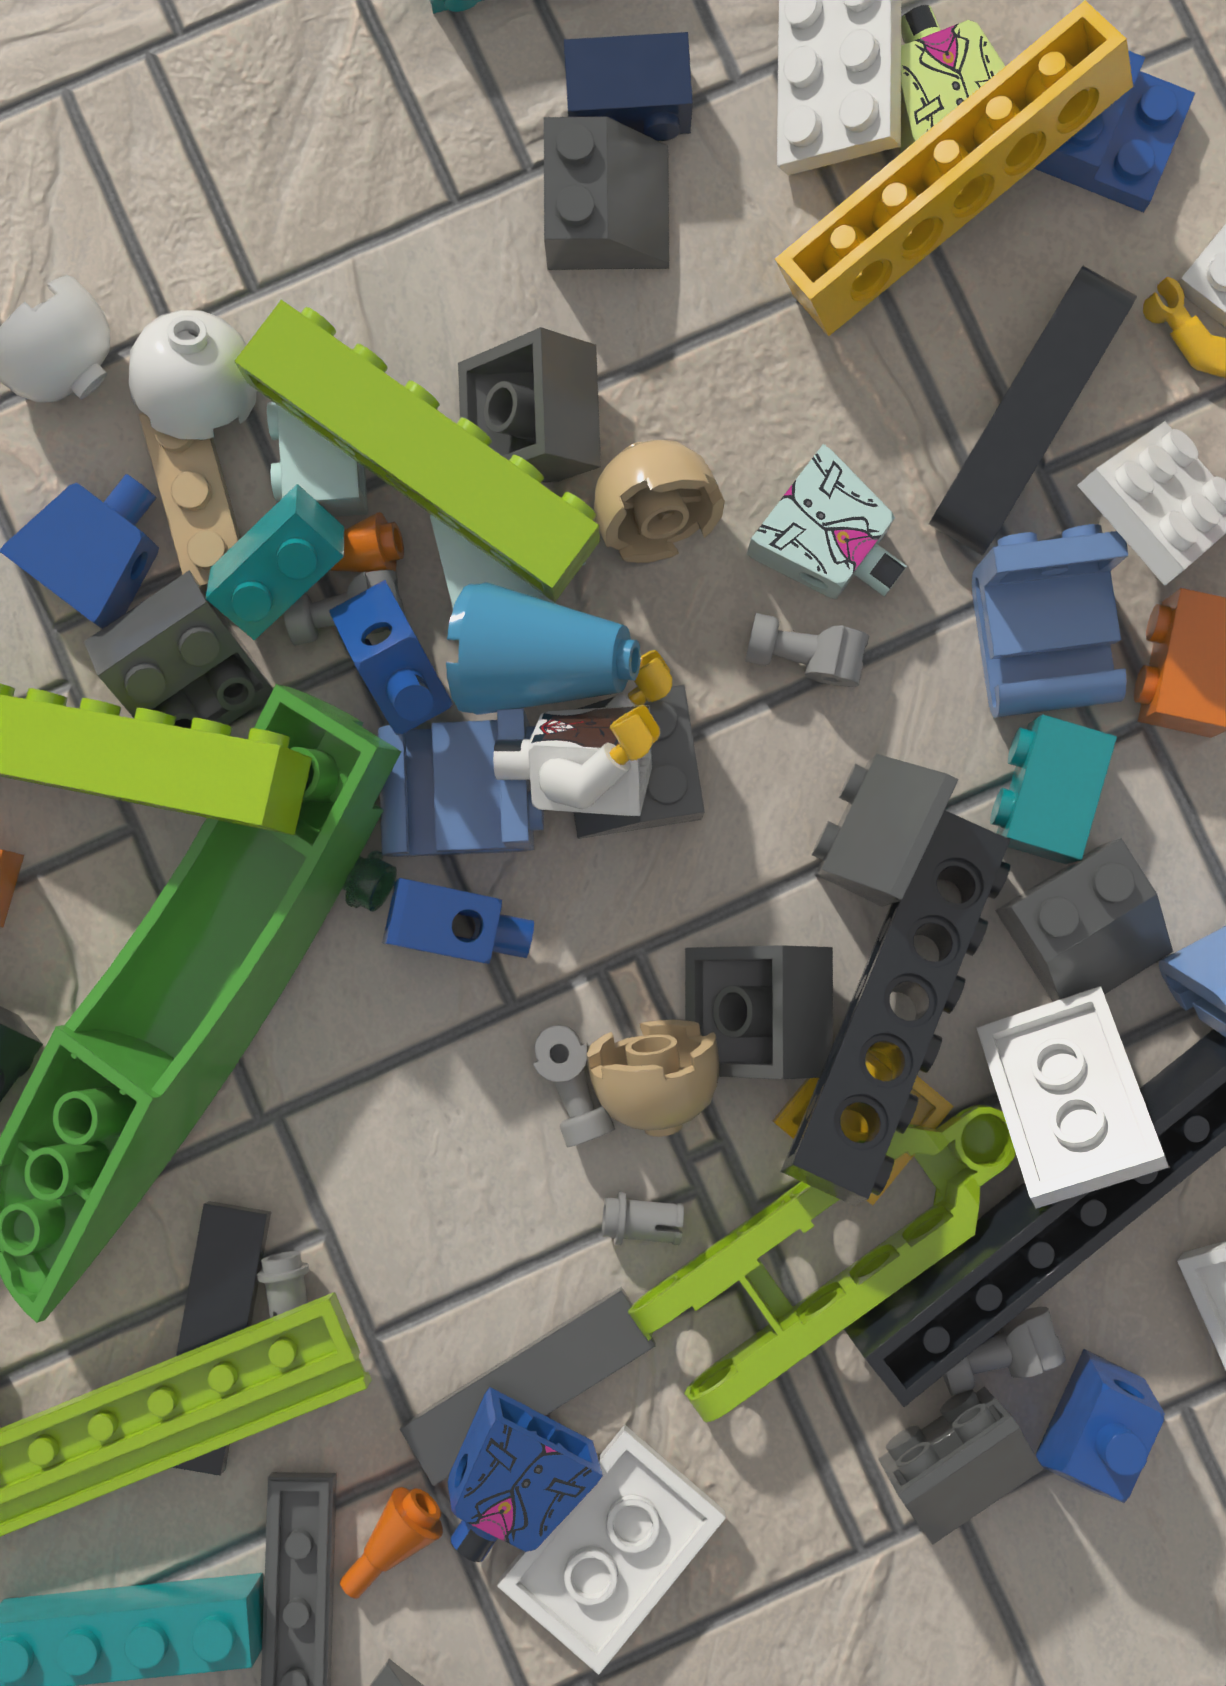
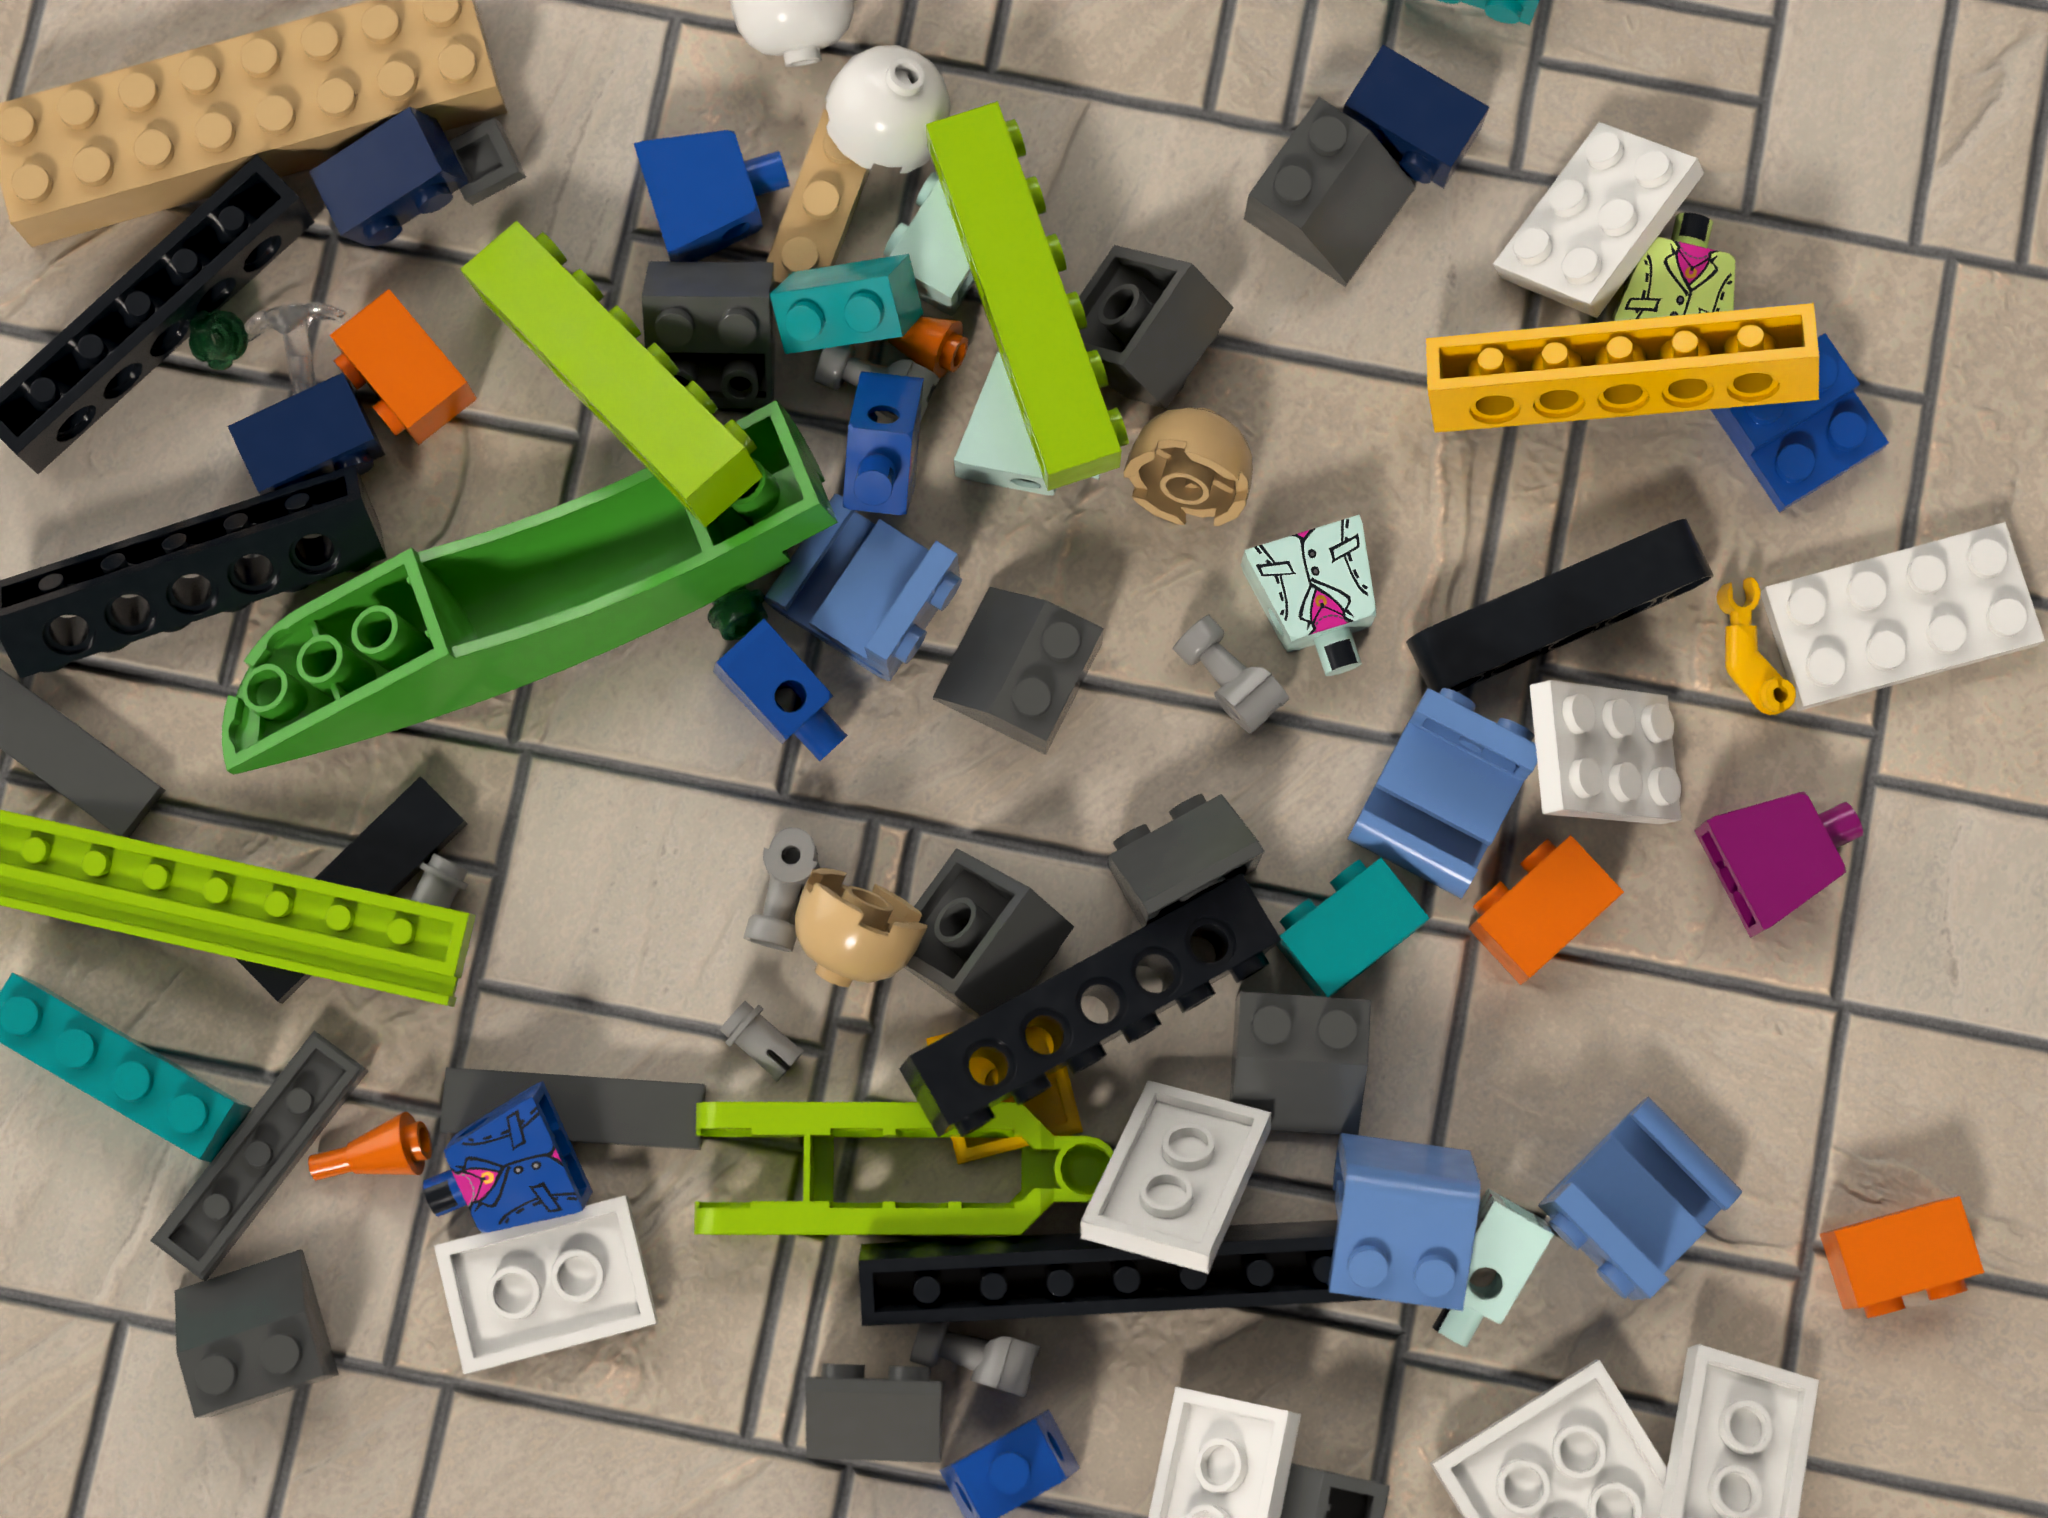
camera: 30 degrees right, 5 degrees down
(533, 652) = (995, 513): dark azure cone -> none
(594, 755) = (985, 628): torso -> none

